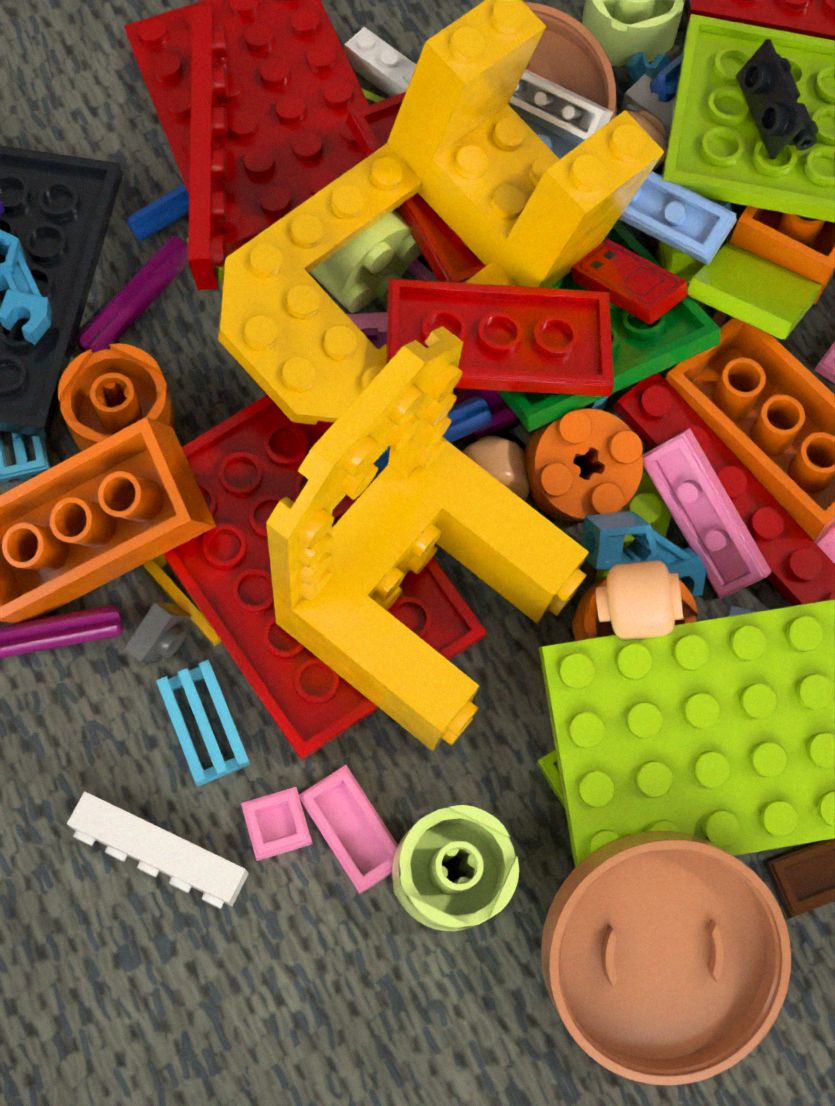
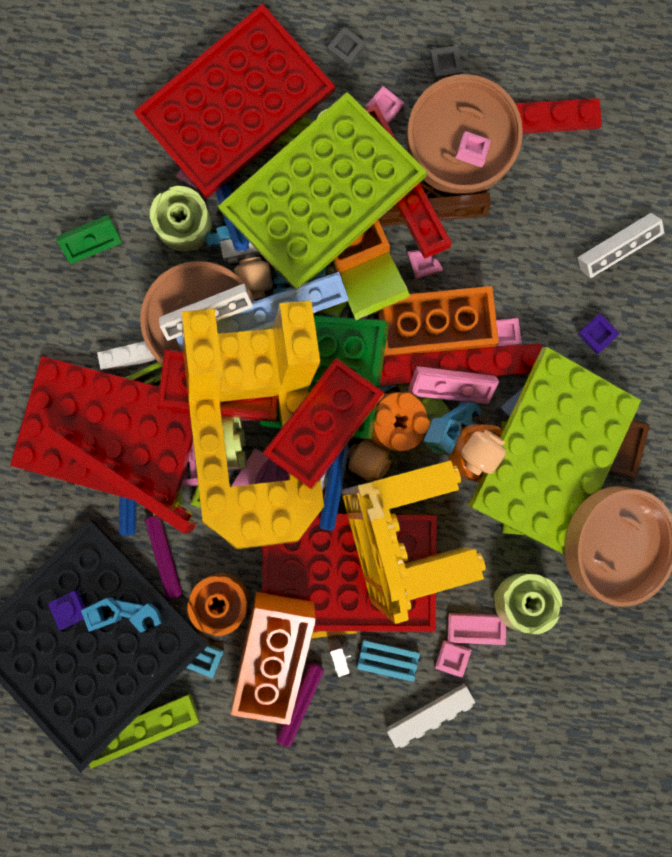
camera: 55 degrees left, 15 degrees up
(631, 281) = (338, 337): red tile -> none
(773, 101) = (287, 206): black hinge -> none

